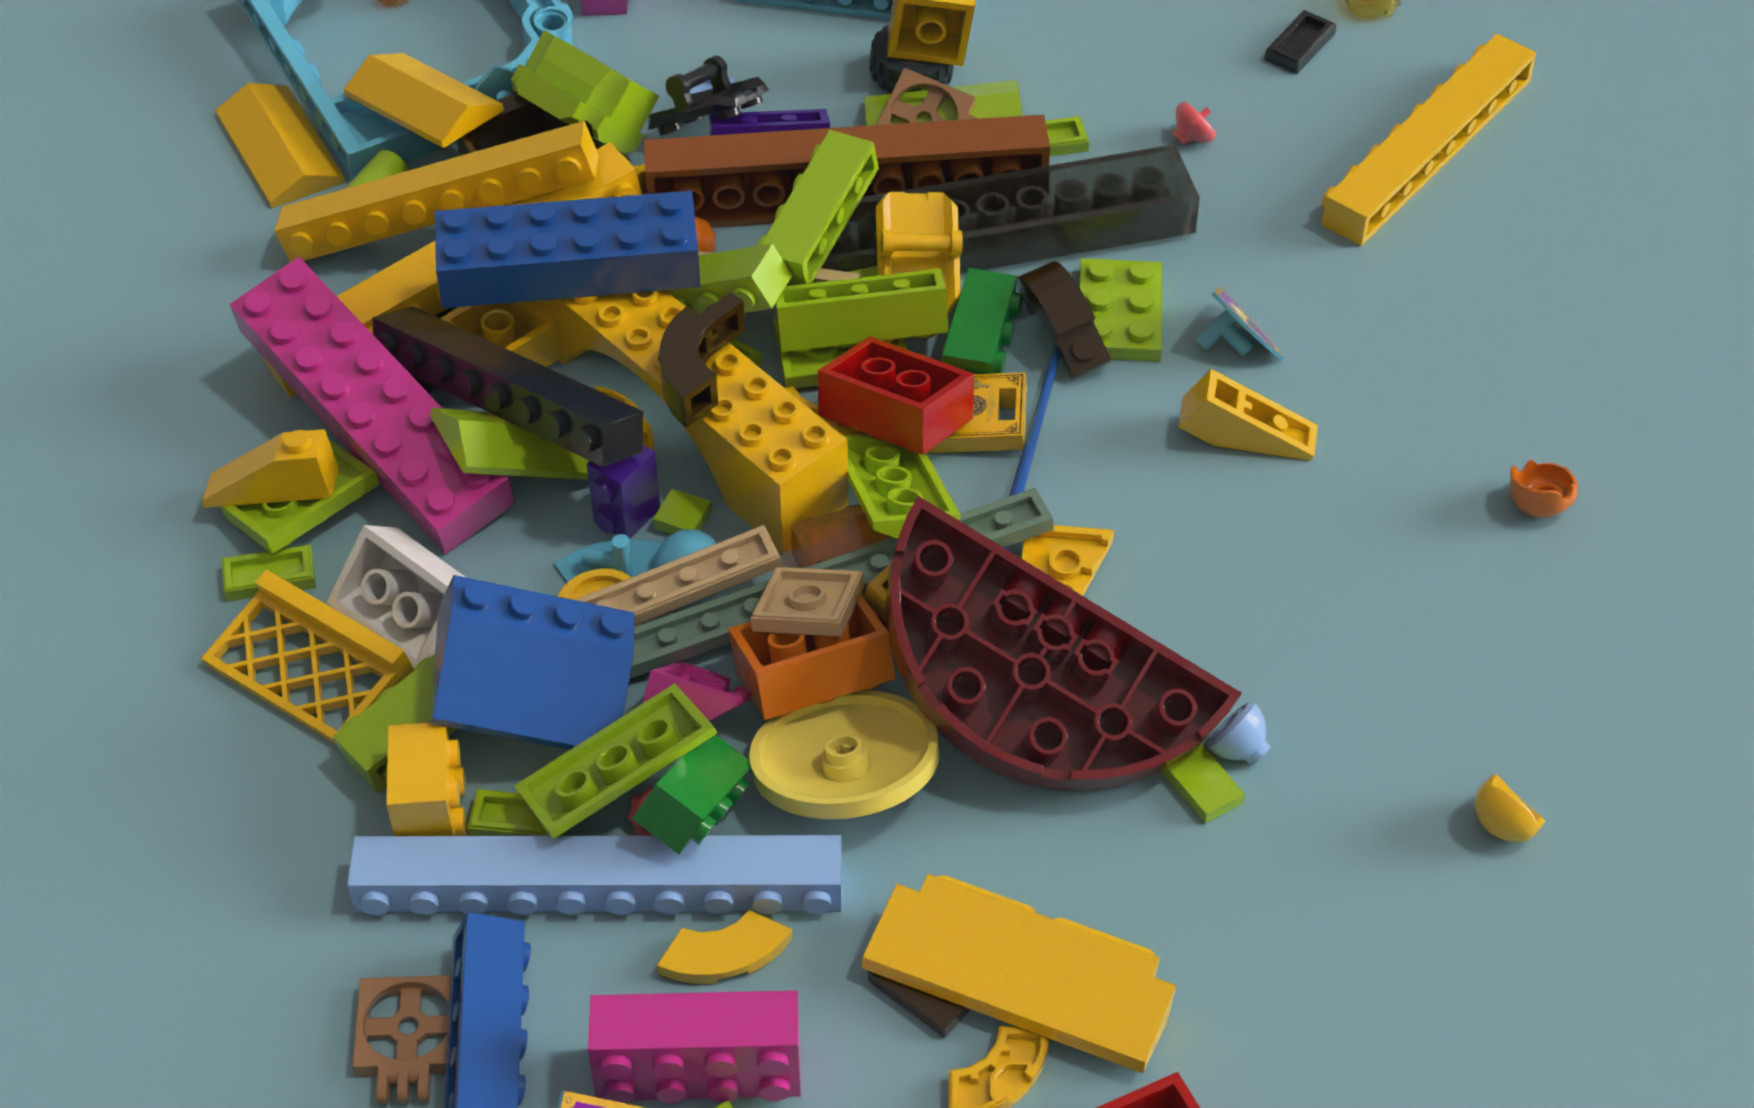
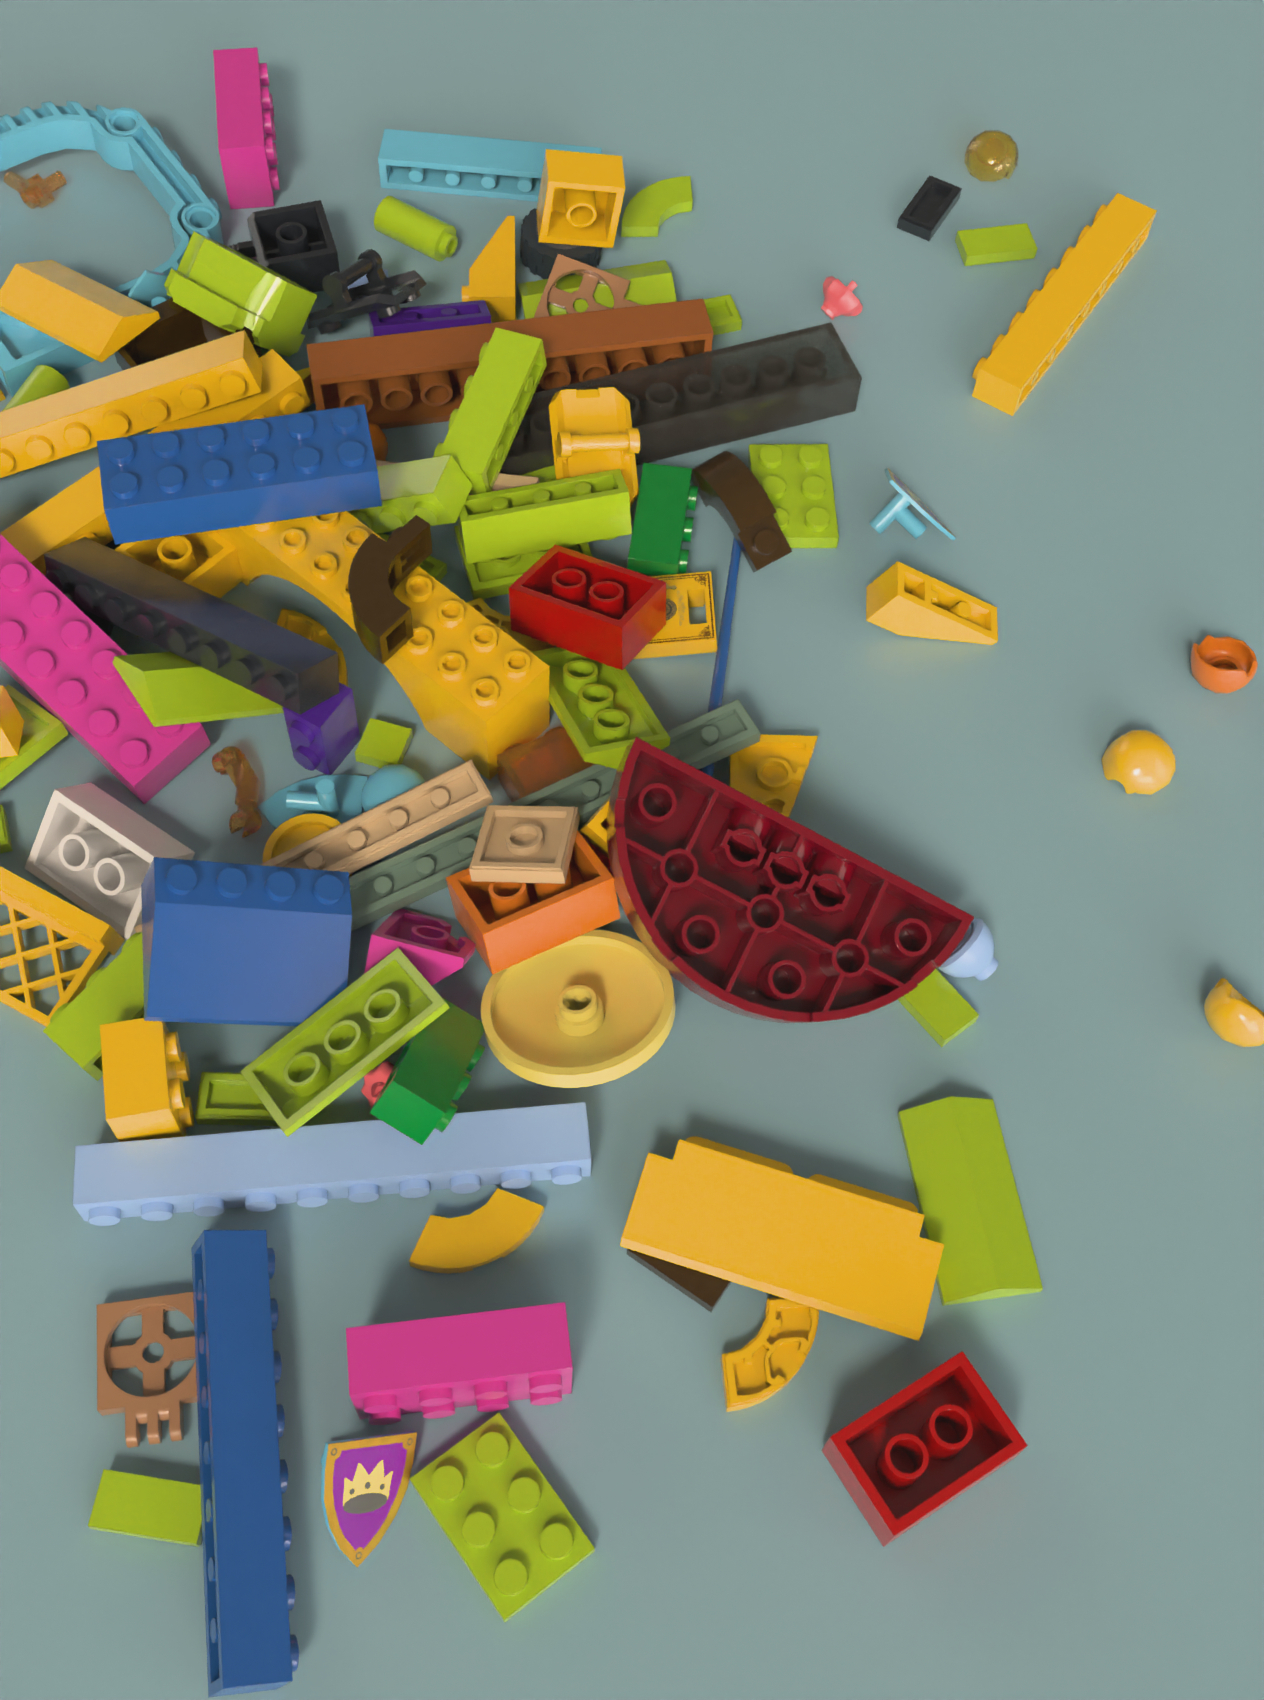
camera: 10 degrees left, 10 degrees up
(536, 522) = (234, 763): none -> clear orange arm
(641, 47) = (293, 243): none -> black hinge
(766, 40) = (415, 228): none -> lime brick
(842, 84) = (494, 274): none -> yellow slope
(1013, 28) = (655, 205): none -> lime tile
(1212, 958) = (969, 1200): none -> lime slope
(1365, 80) = (996, 244): none -> lime tile
(1444, 576) = (1139, 762): none -> yellow hair

